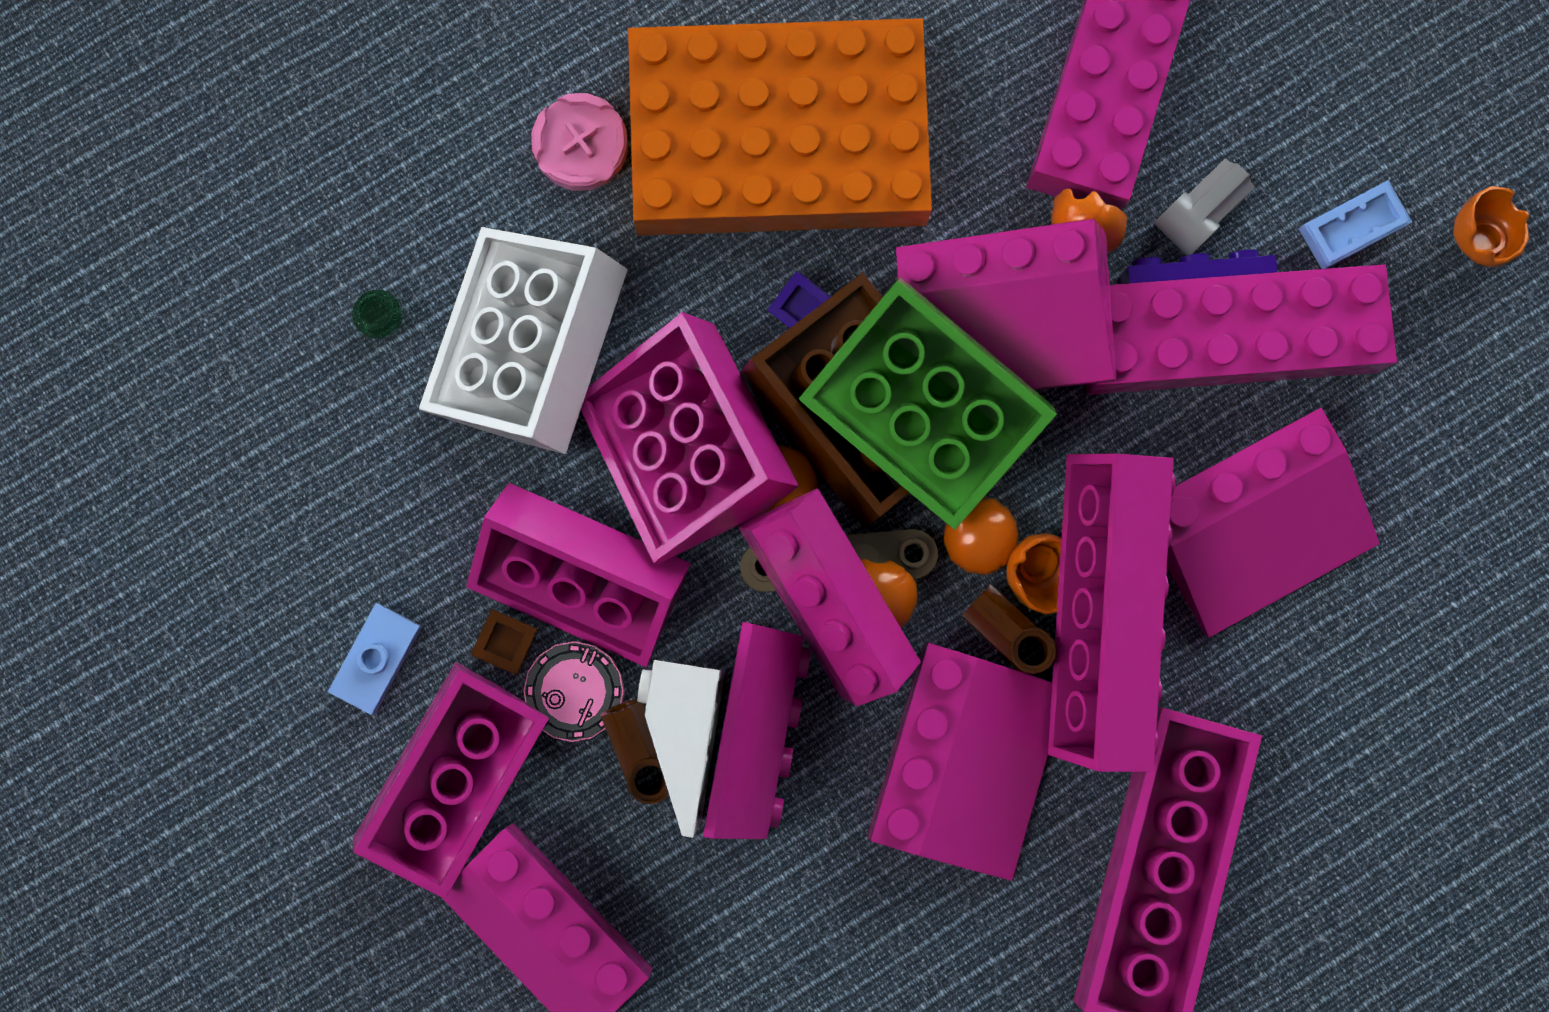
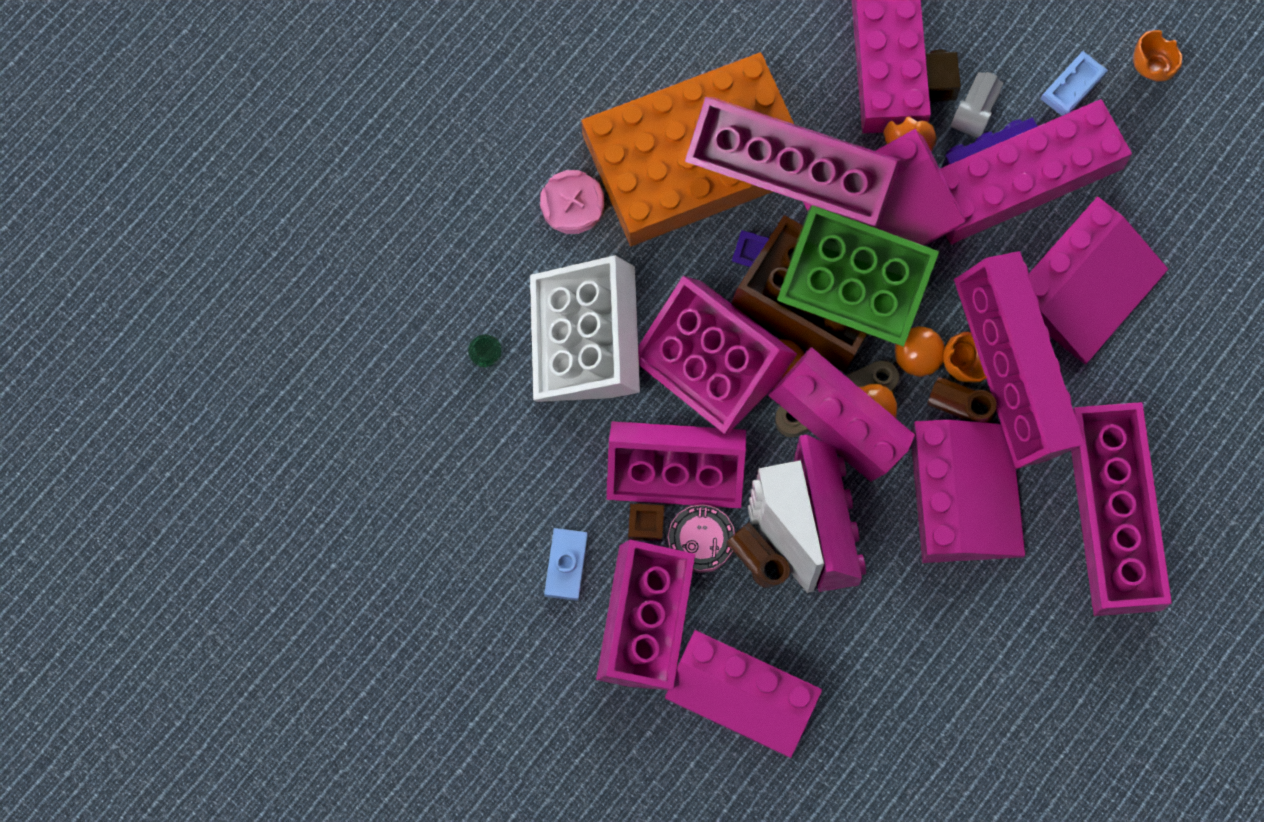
camera: 15 degrees left, 10 degrees down
(895, 202) = (792, 160): none -> dark pink brick
(1171, 144) = (943, 75): none -> dark brown brick

